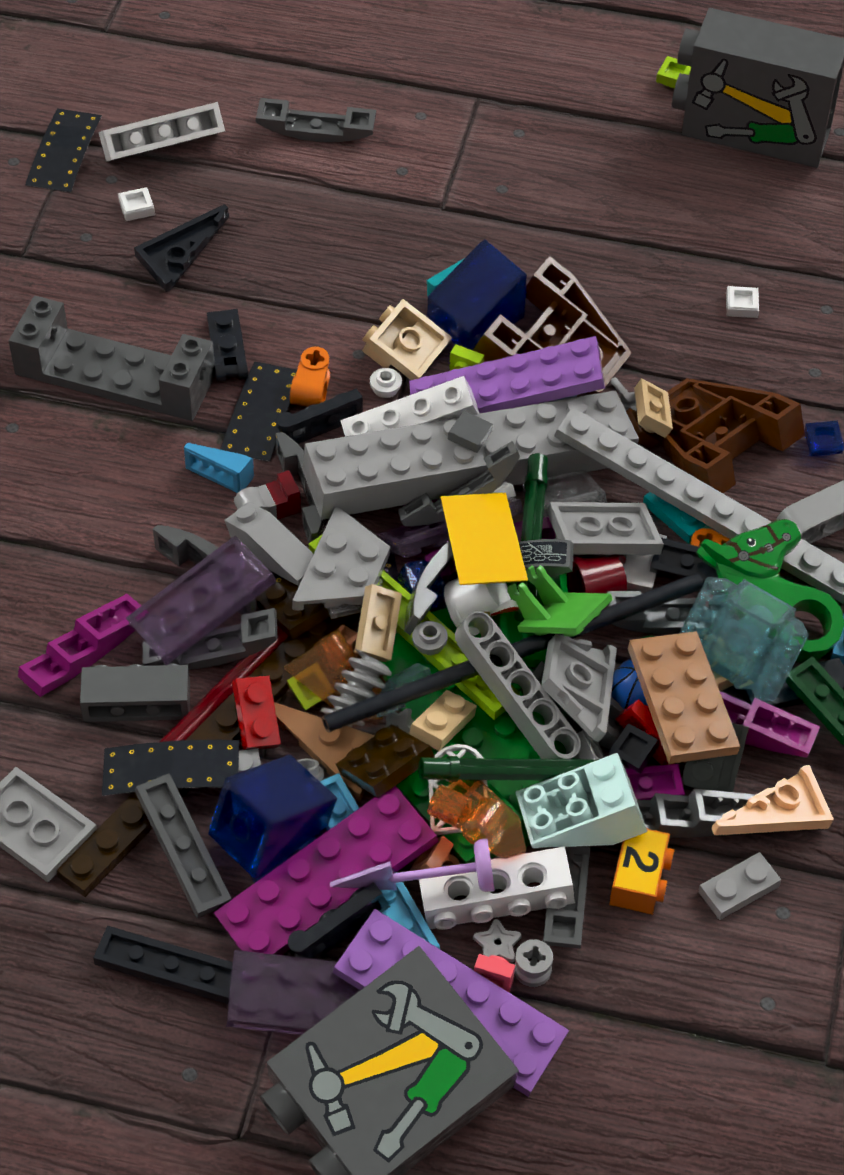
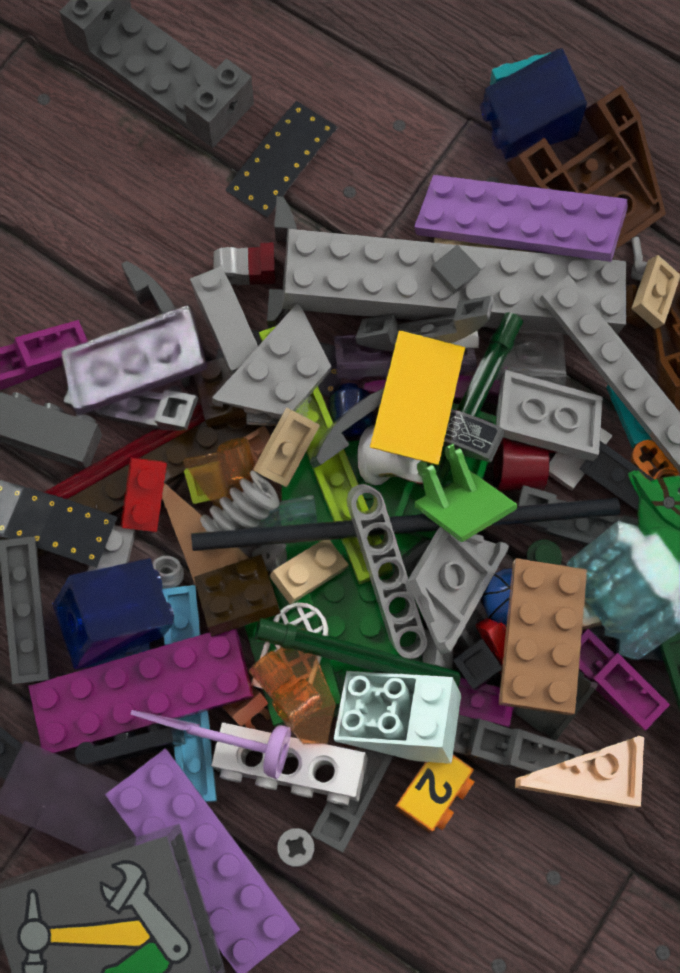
camera: 20 degrees right, 20 degrees up
(220, 466) = (220, 216): dark azure slope -> none
(227, 345) = (275, 75): black plate -> none
(311, 378) = (338, 143): orange piece -> none
(320, 417) = (329, 189): black plate -> none
(385, 382) = (410, 176): white plate -> none
(405, 340) = (446, 130): tan plate -> none
(426, 406) = (421, 224): white brick -> none
(426, 644) = (329, 490): light grey plate -> none
(463, 357) = (494, 171): lime plate -> none
(496, 970) = (255, 844): coral plate -> none
(498, 932) = (276, 822): light grey plate -> none
(739, 885) = (523, 837): light grey plate -> none

